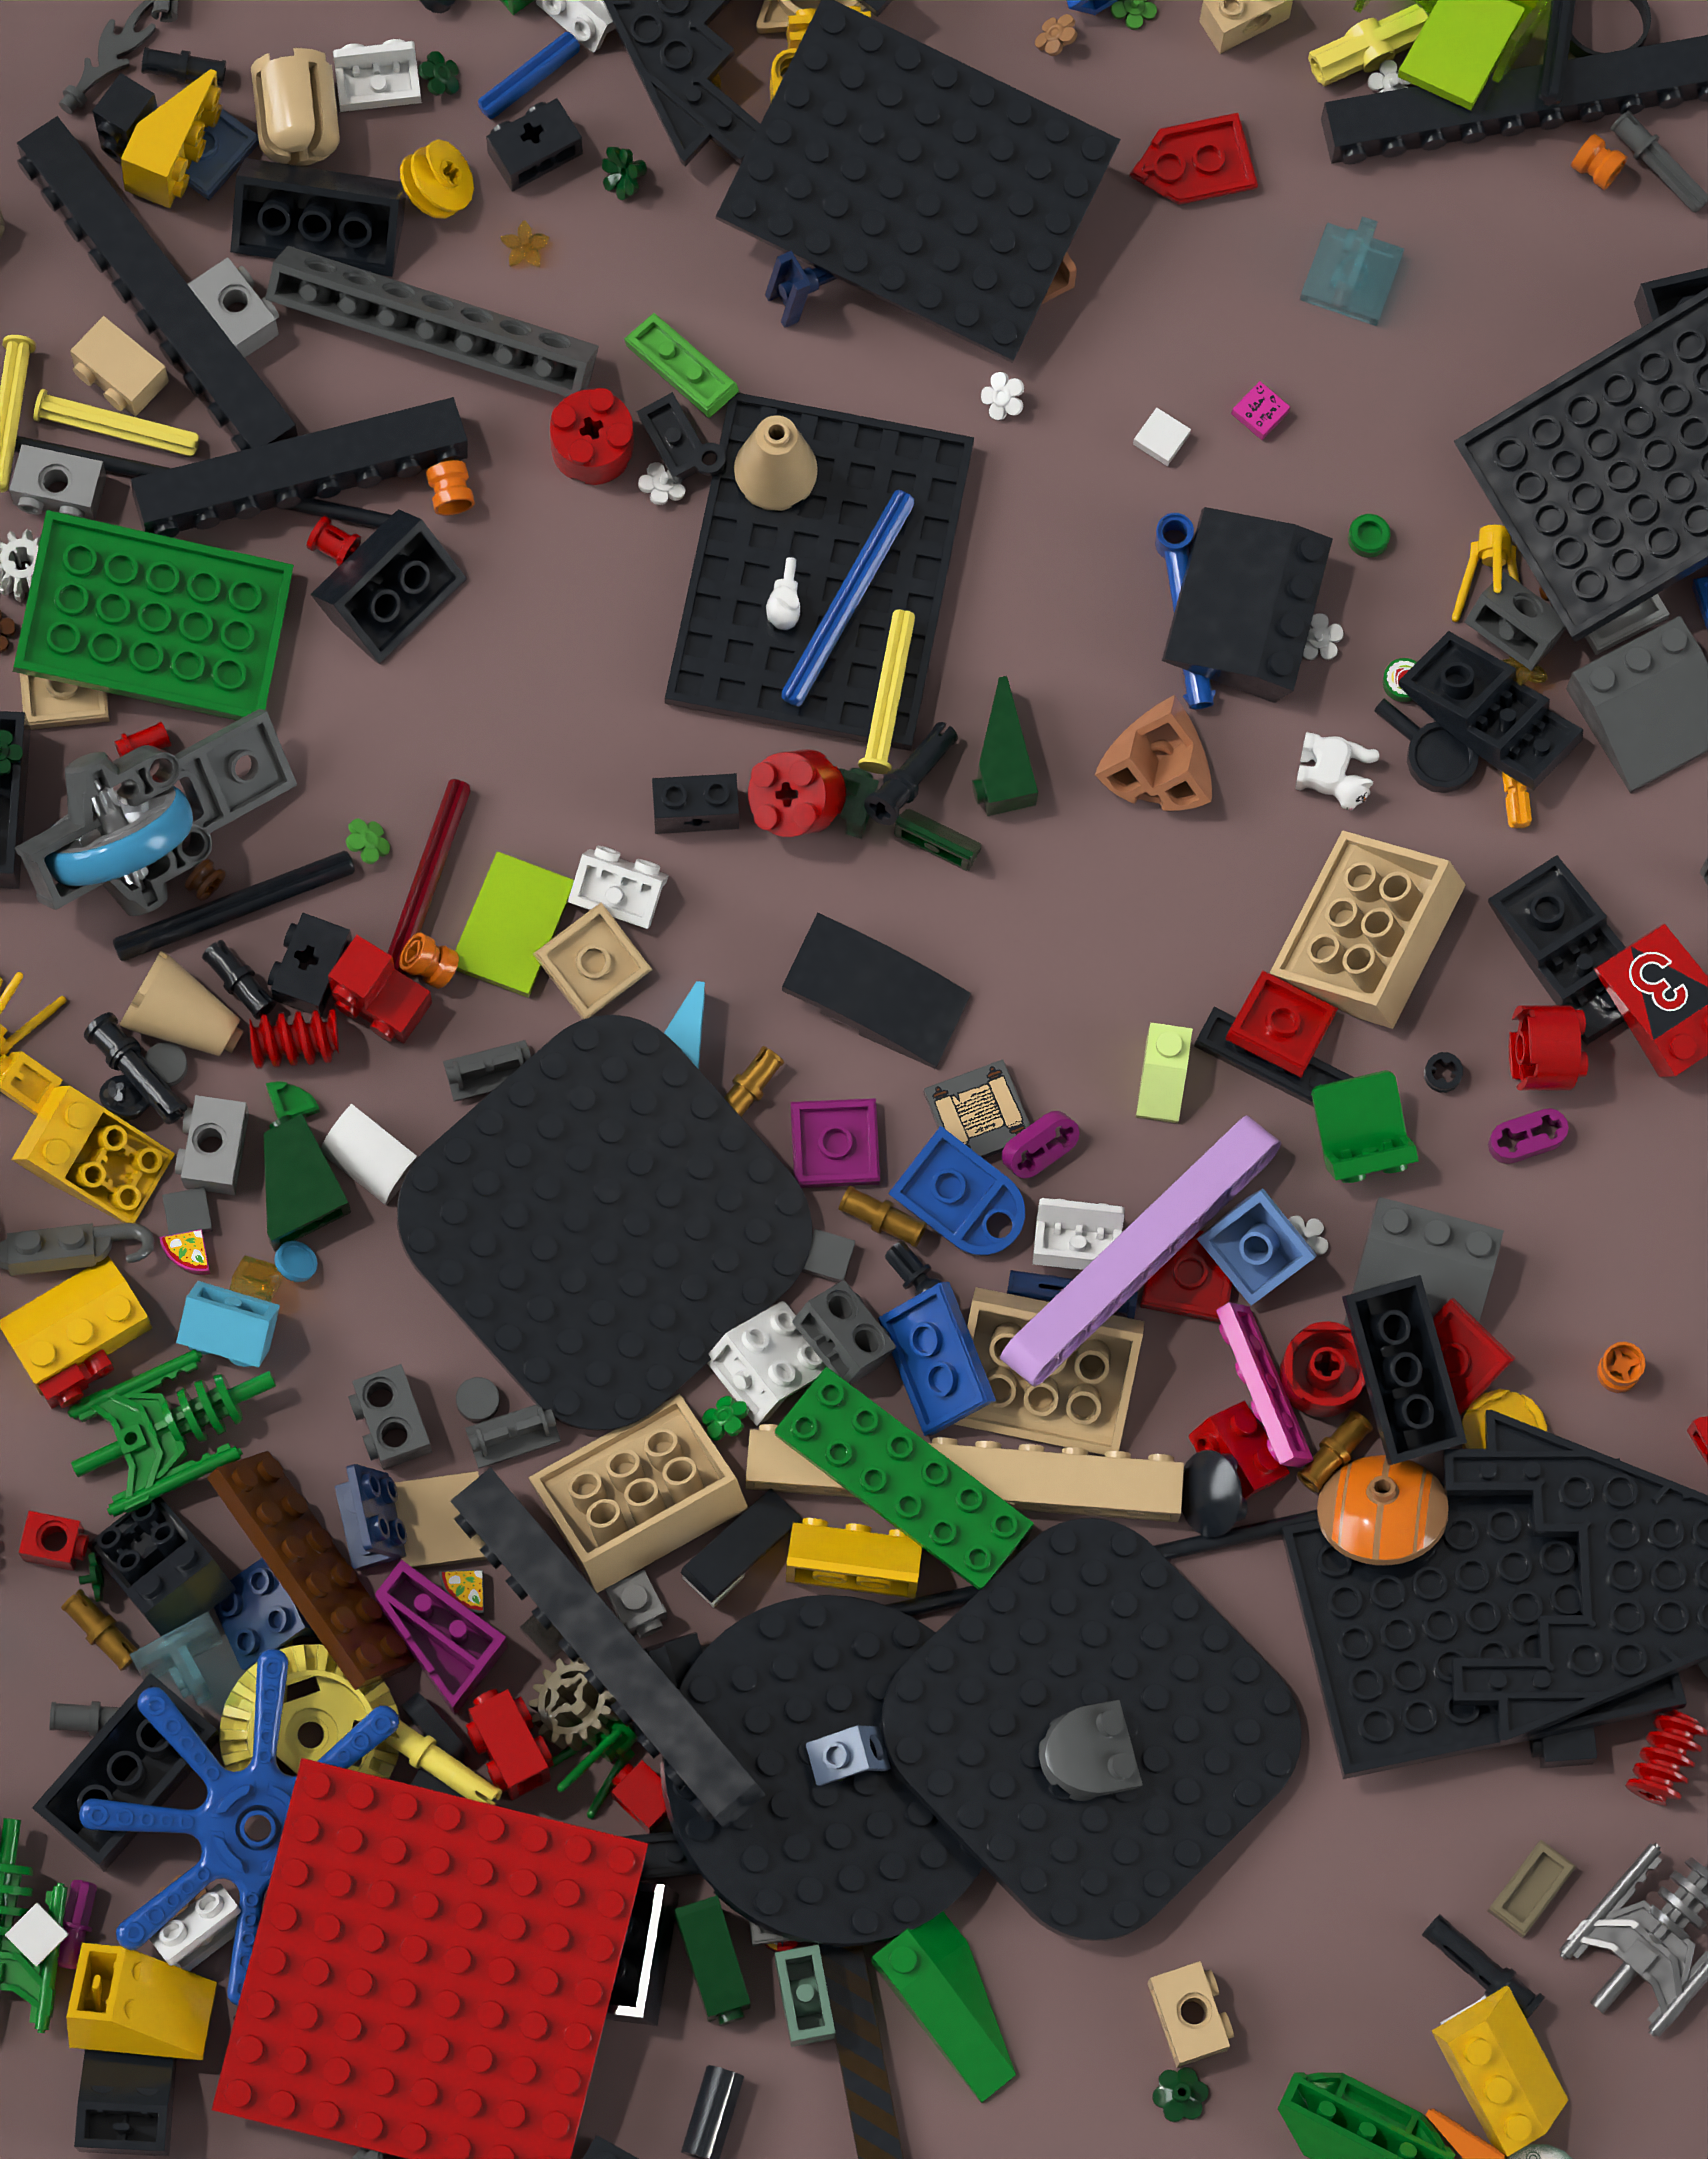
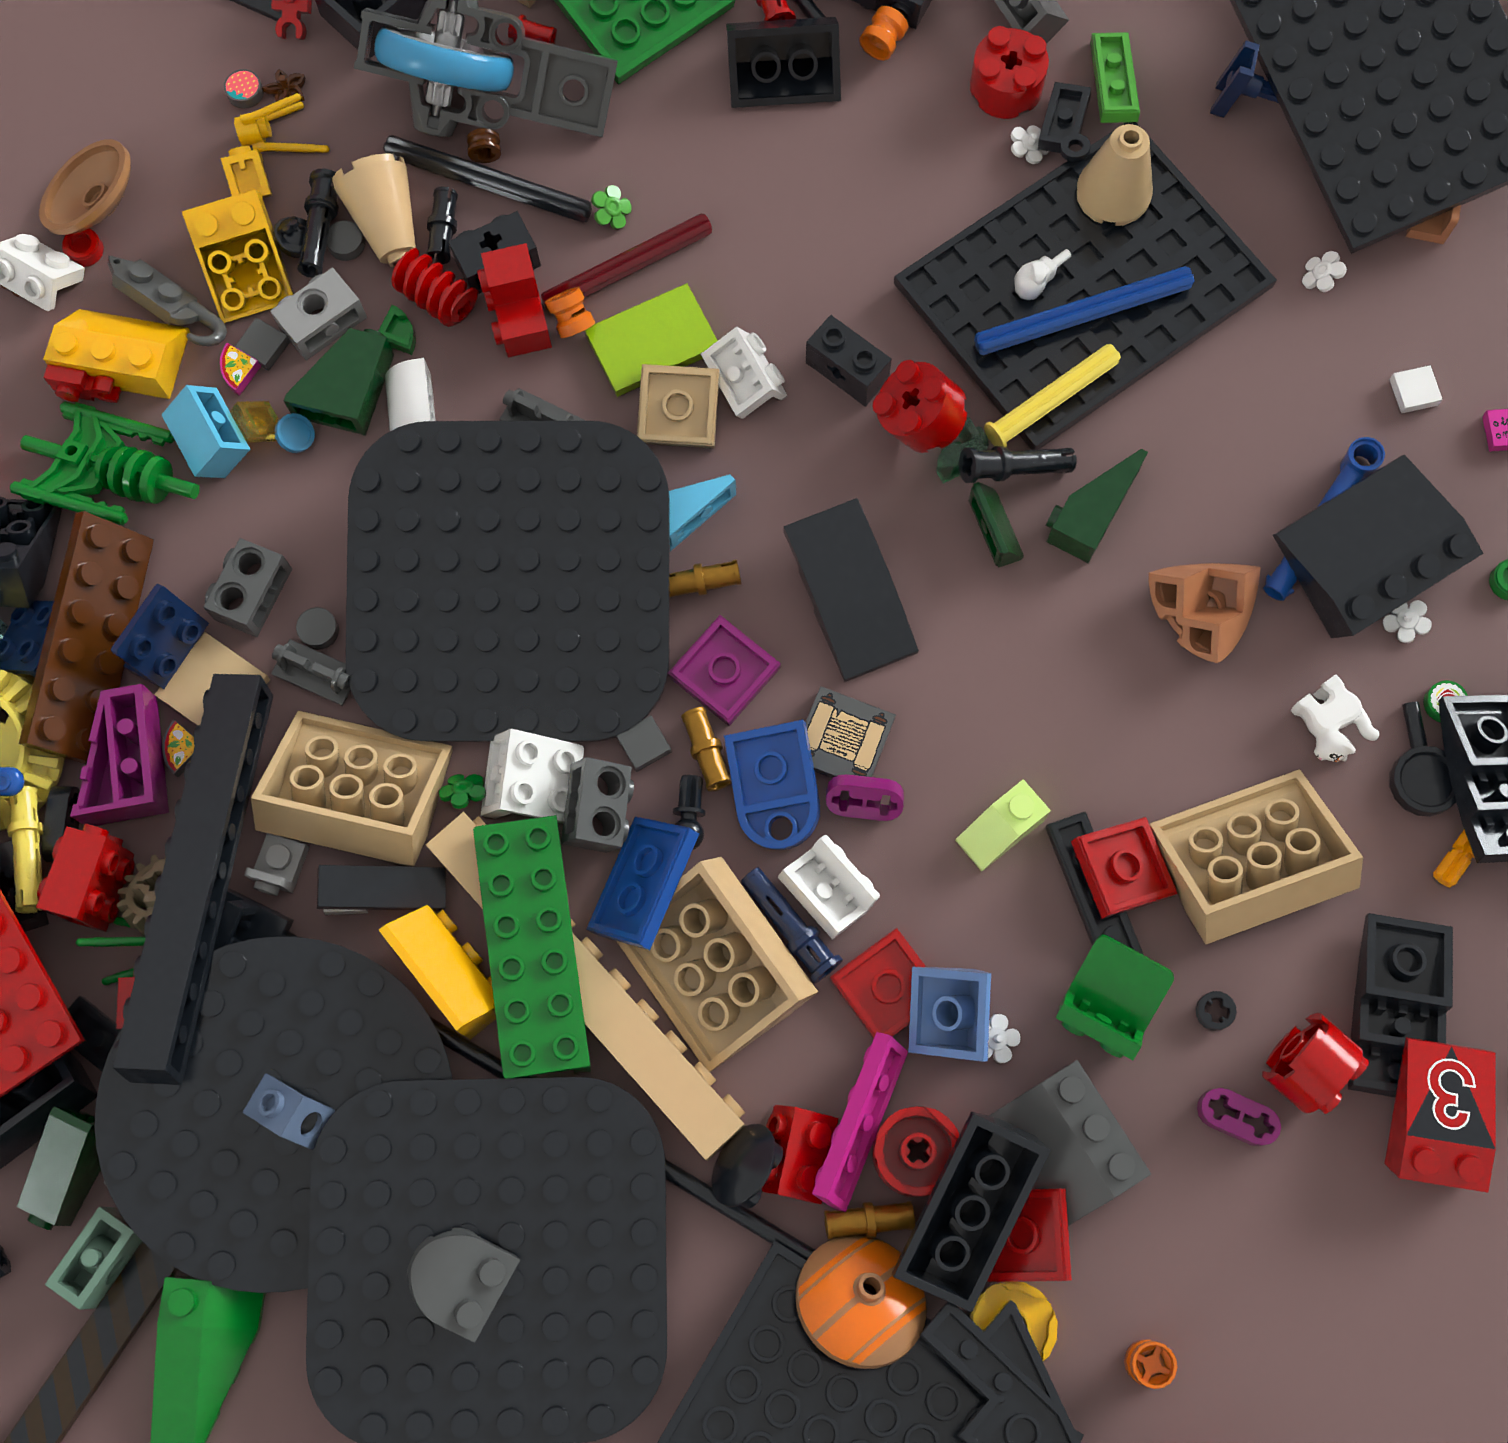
camera: 50 degrees right, 0 degrees up
(1140, 1251) = (854, 937): lavender beam -> none

